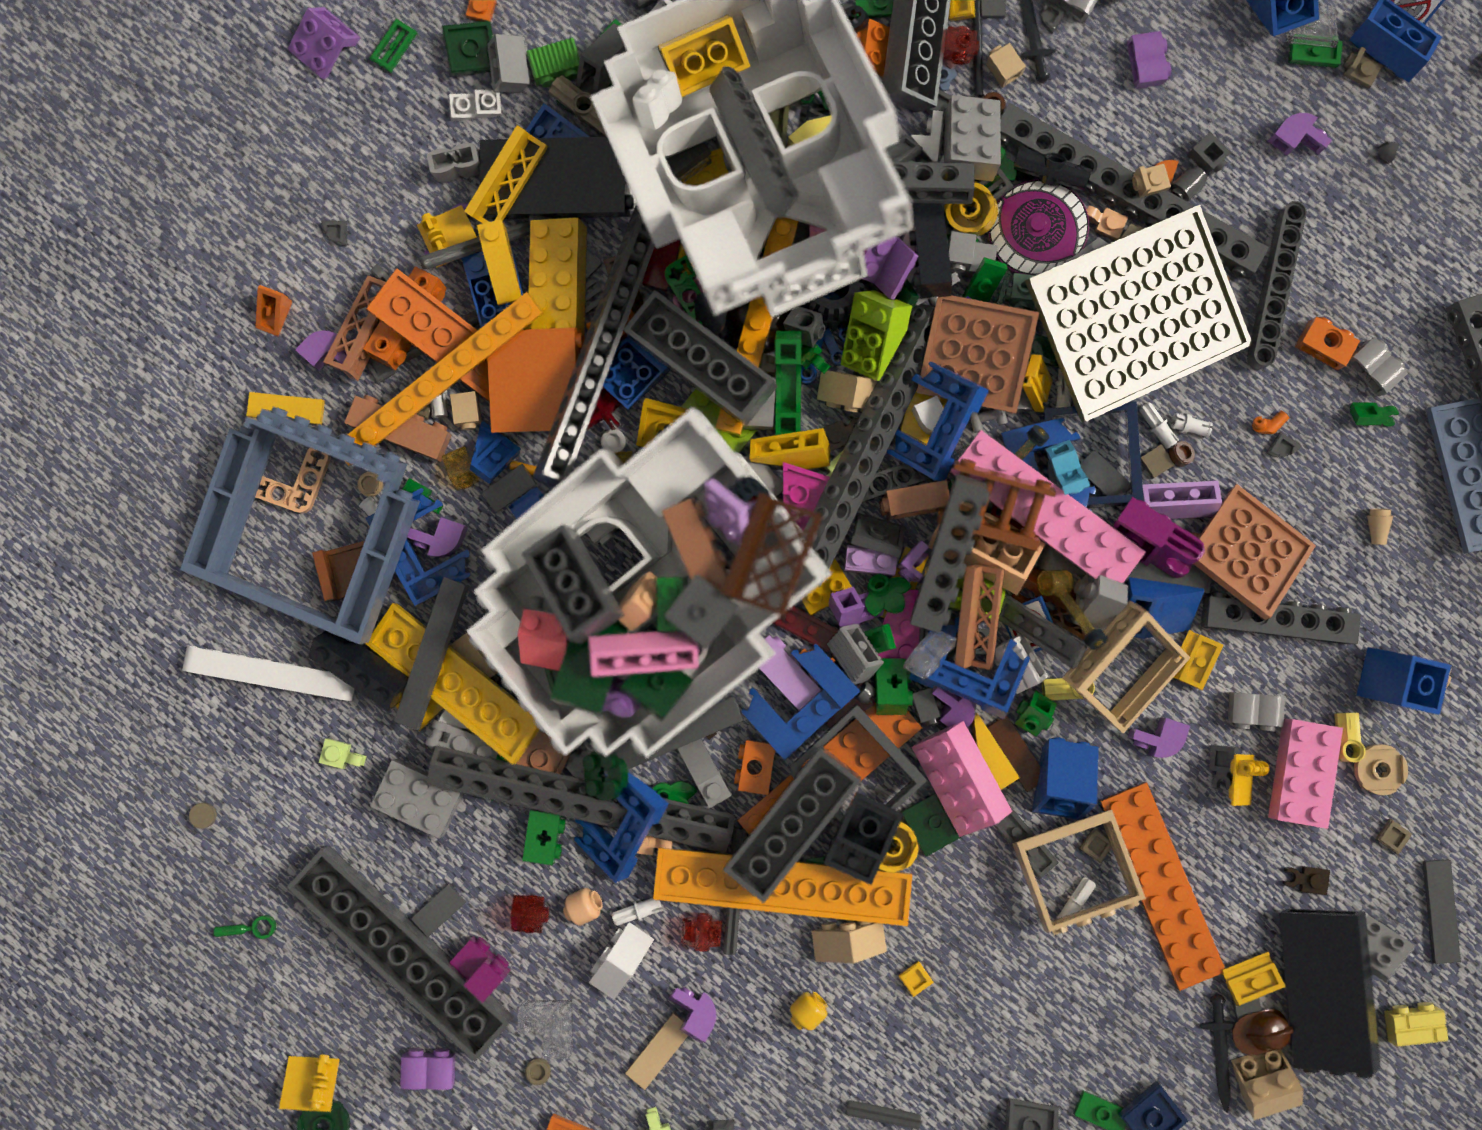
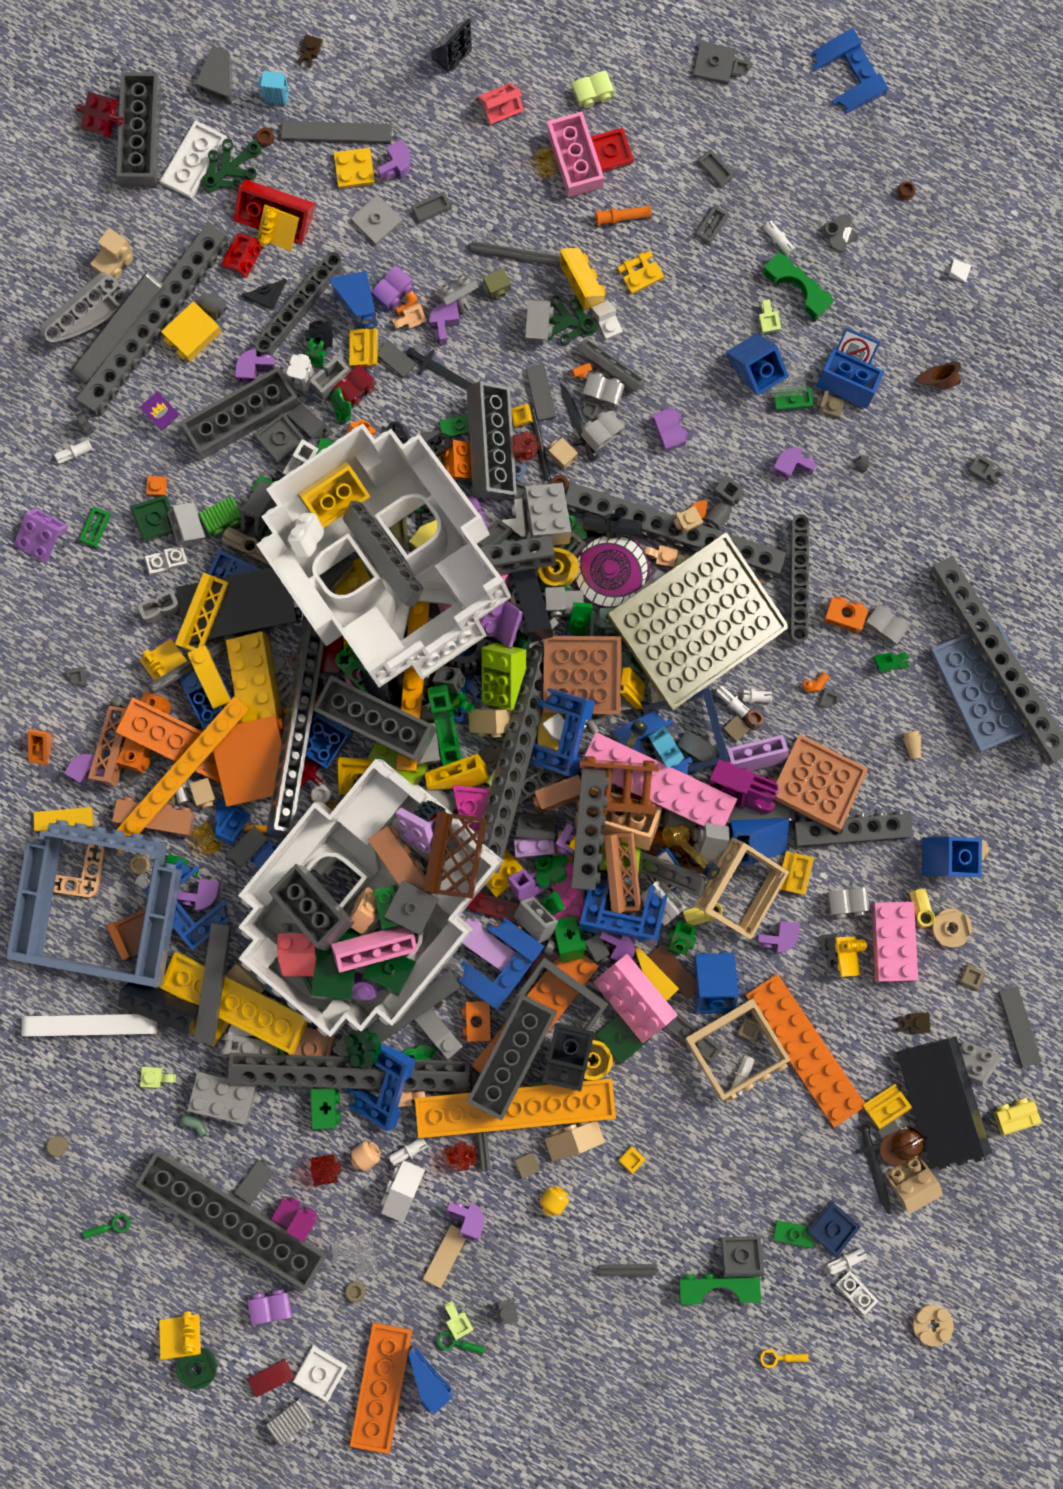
camera: 15 degrees left, 5 degrees down
(378, 820) = (194, 1122): none -> sand green arm
(783, 958) = (527, 1165): none -> dark tan tile
(928, 653) = (589, 907): clear slope -> none
(1062, 44) = (602, 430): none -> light grey brick

